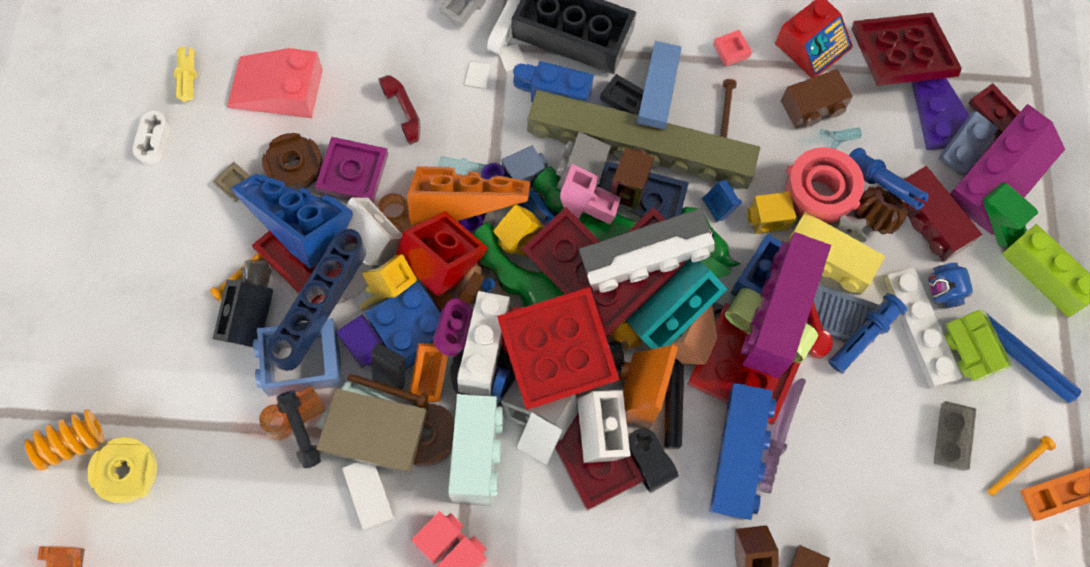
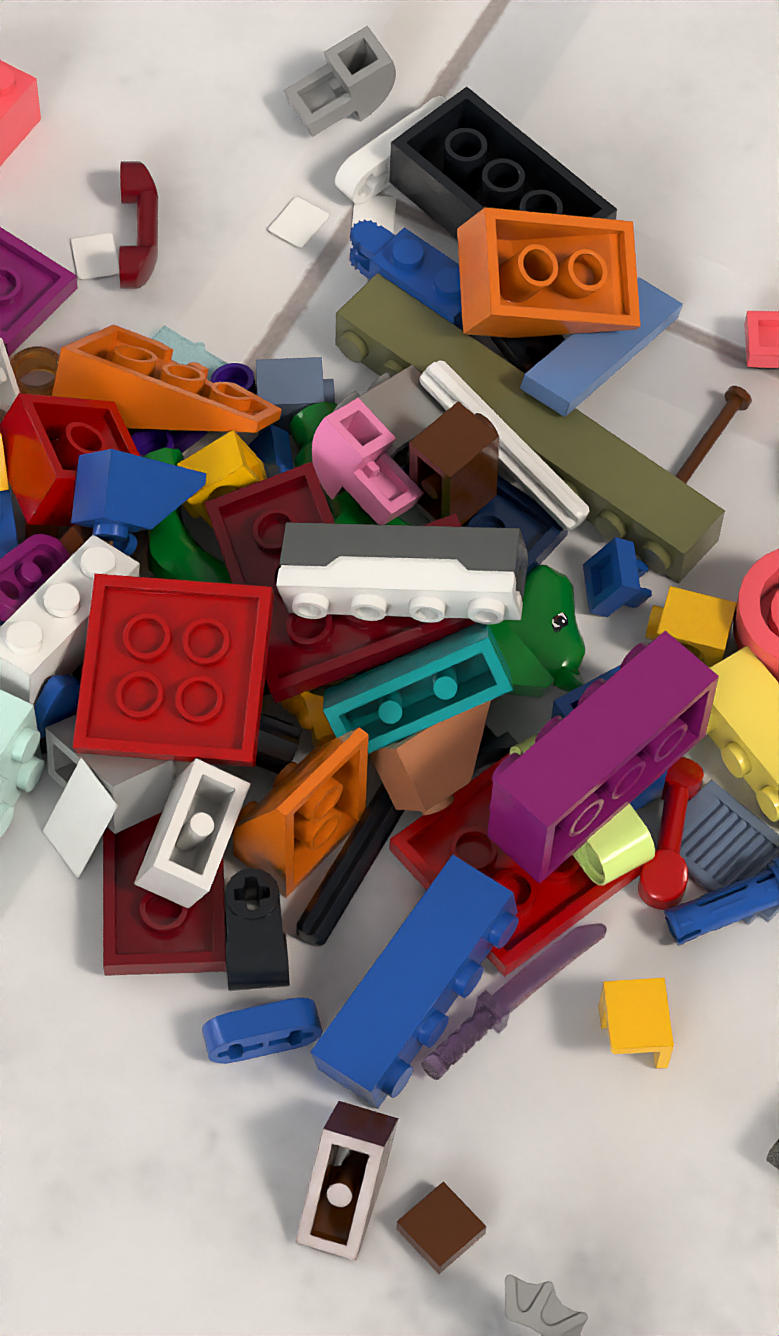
camera: 25 degrees right, 10 degrees down
(387, 132) = (95, 256): none -> white sticker
(485, 262) = (128, 492): none -> blue slope
(624, 60) = (546, 274): none -> orange slope
(661, 163) = (514, 453): none -> white axle
(678, 507) = (262, 1030): none -> blue beam
(848, 421) = (637, 1018): none -> yellow panel

